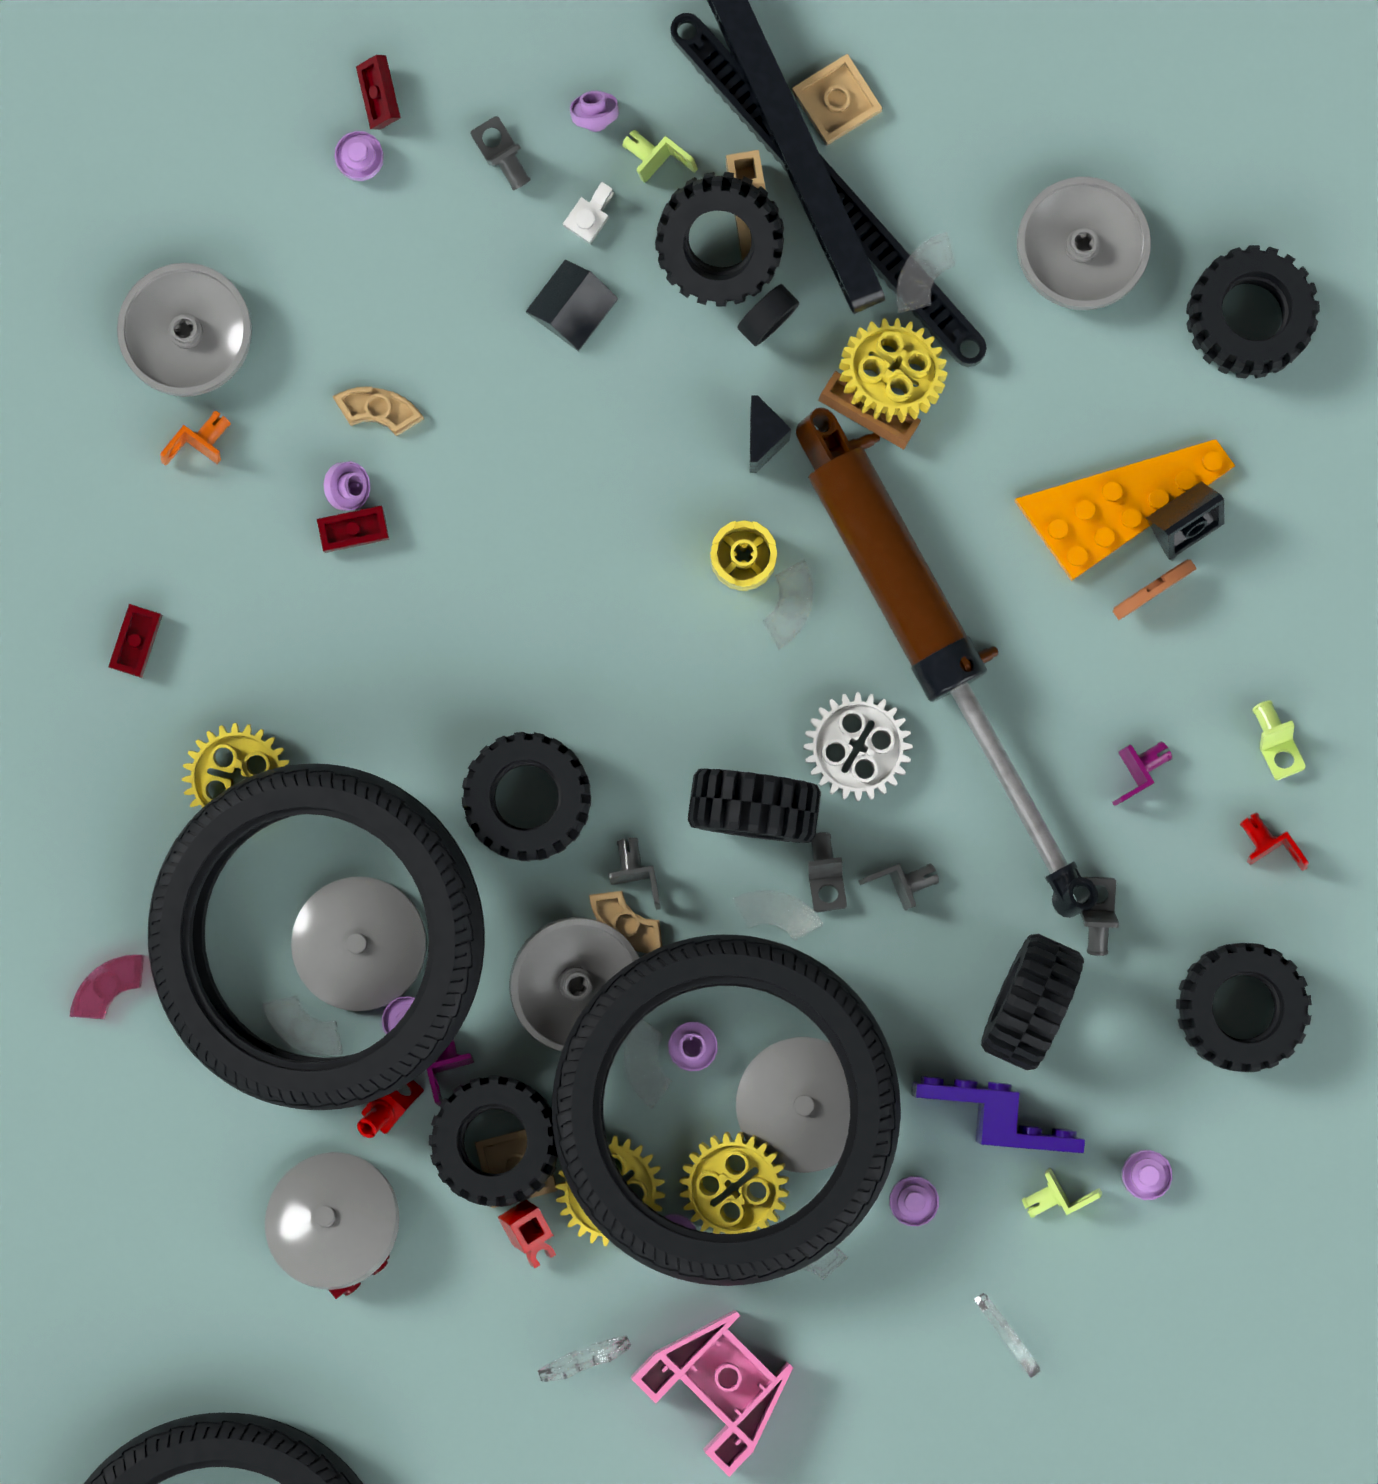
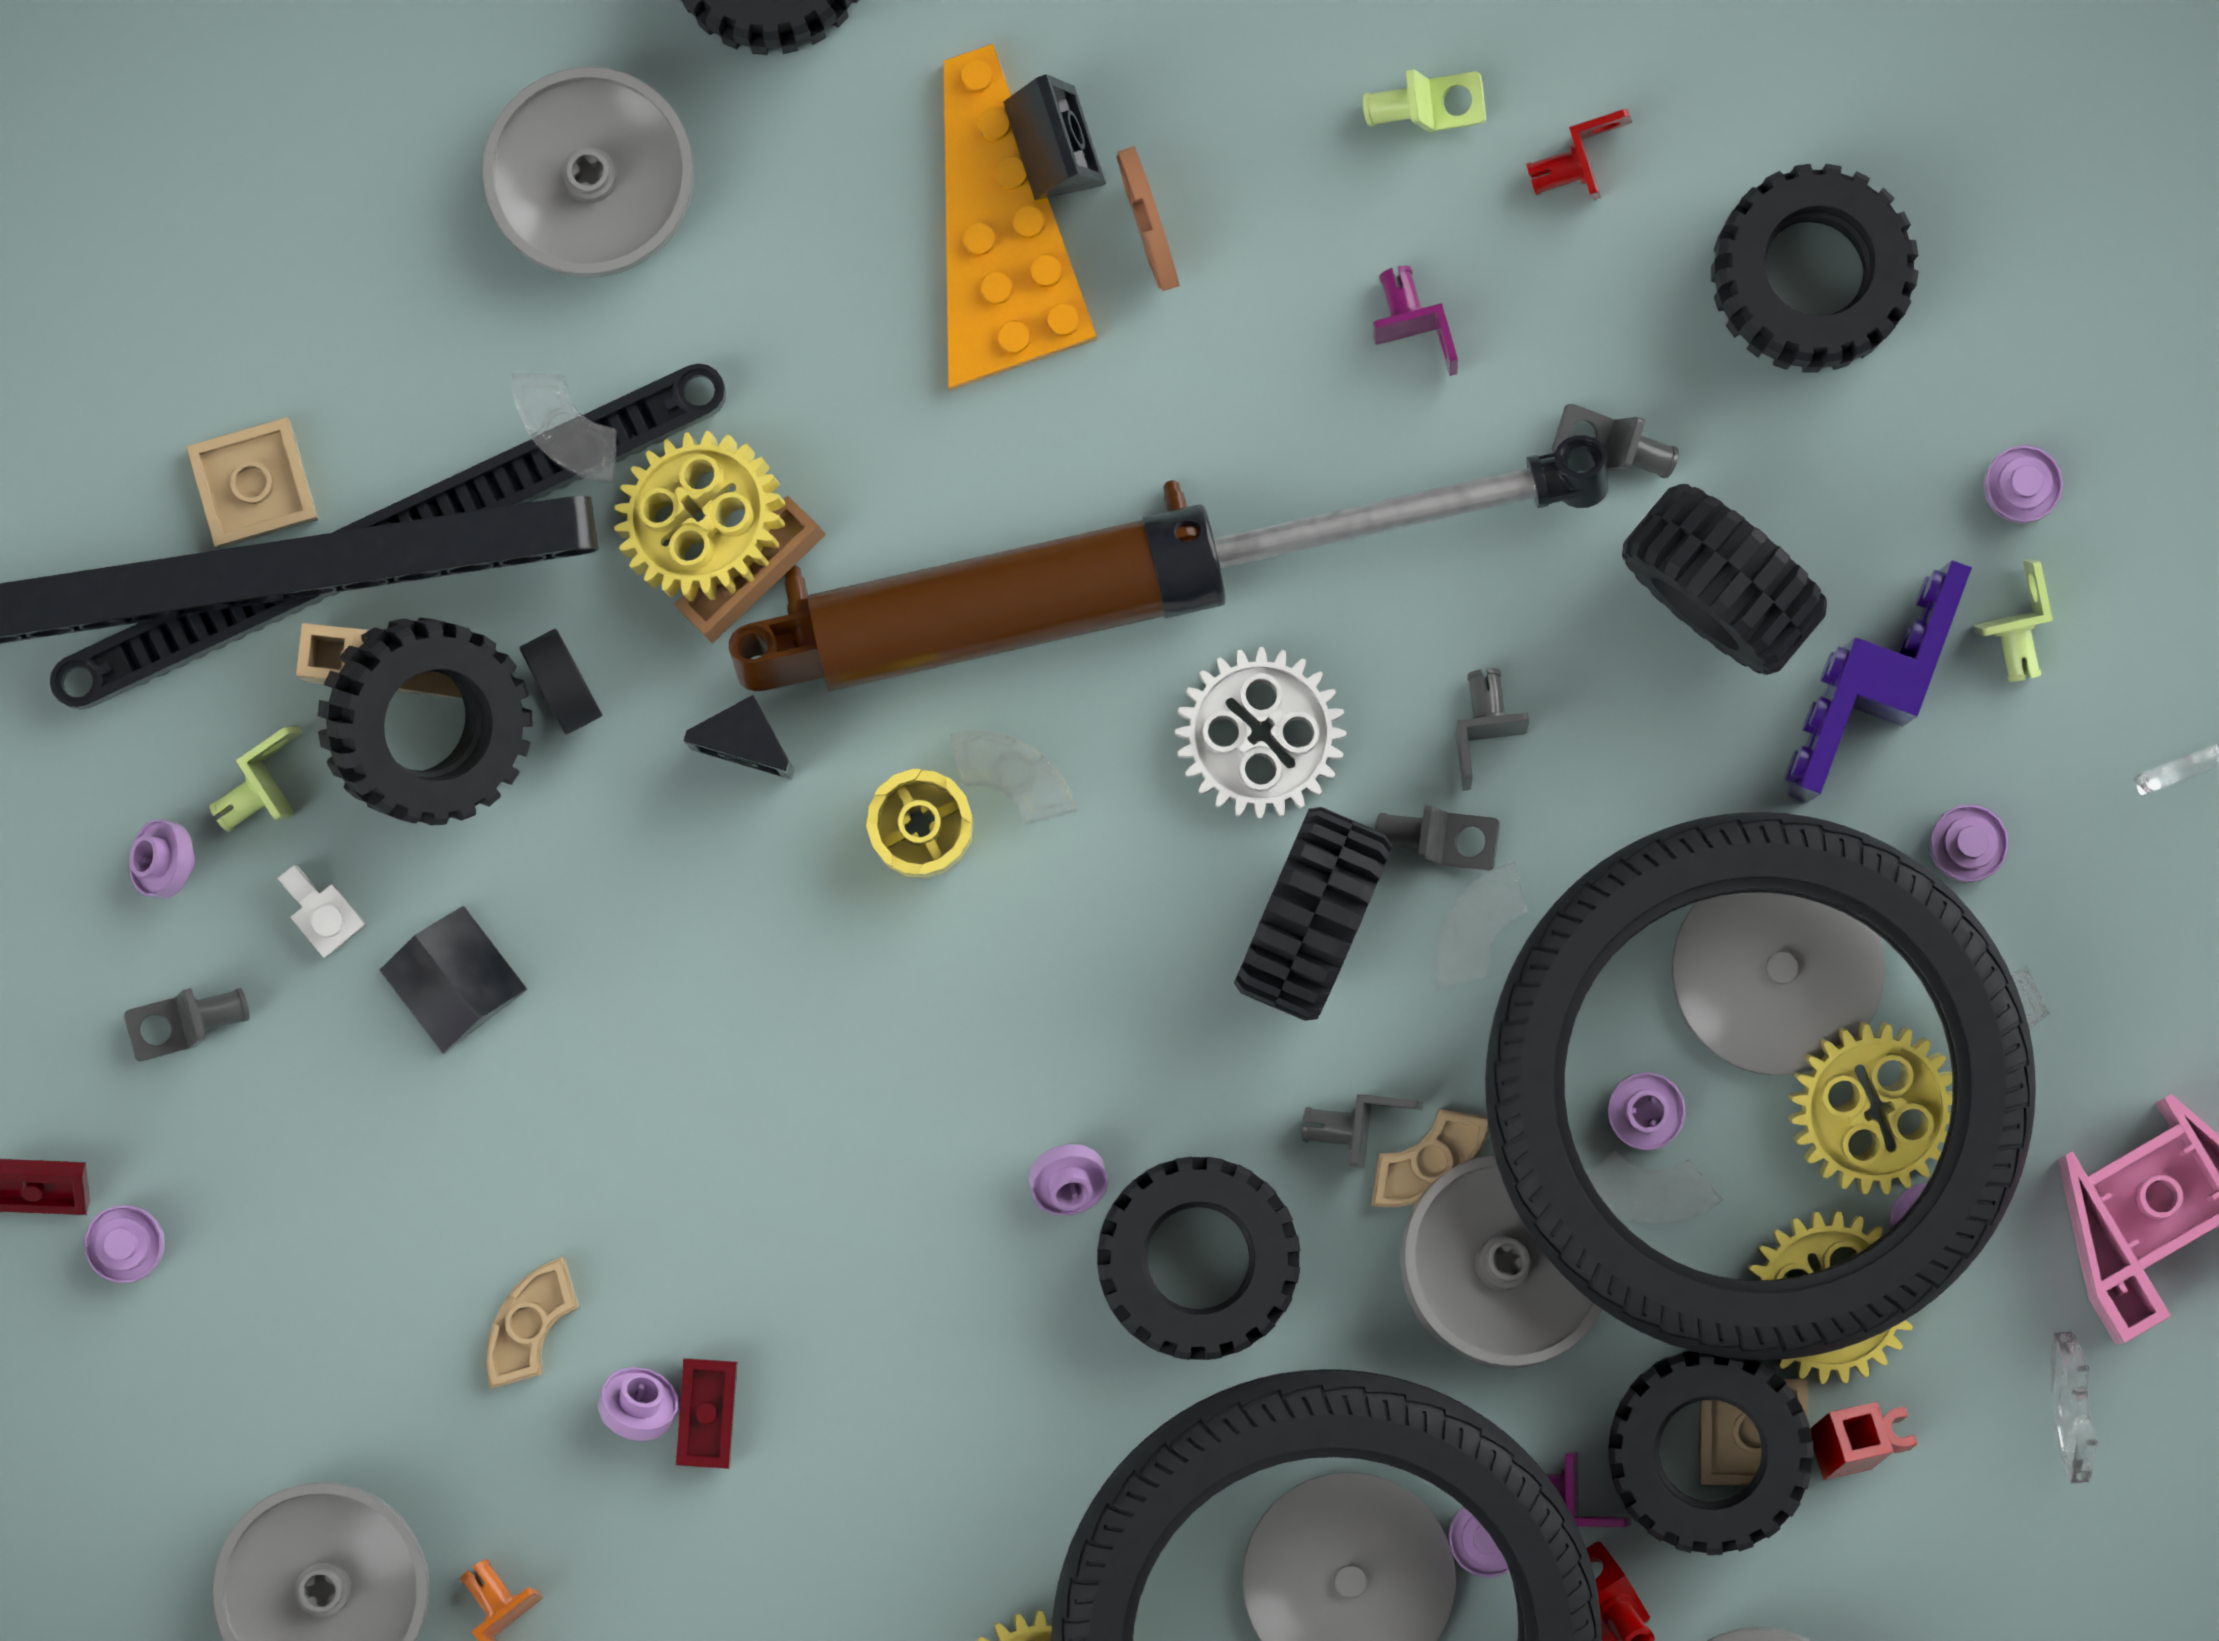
camera: 80 degrees left, 0 degrees up
(553, 705) = (1068, 1179): none -> lavender plate

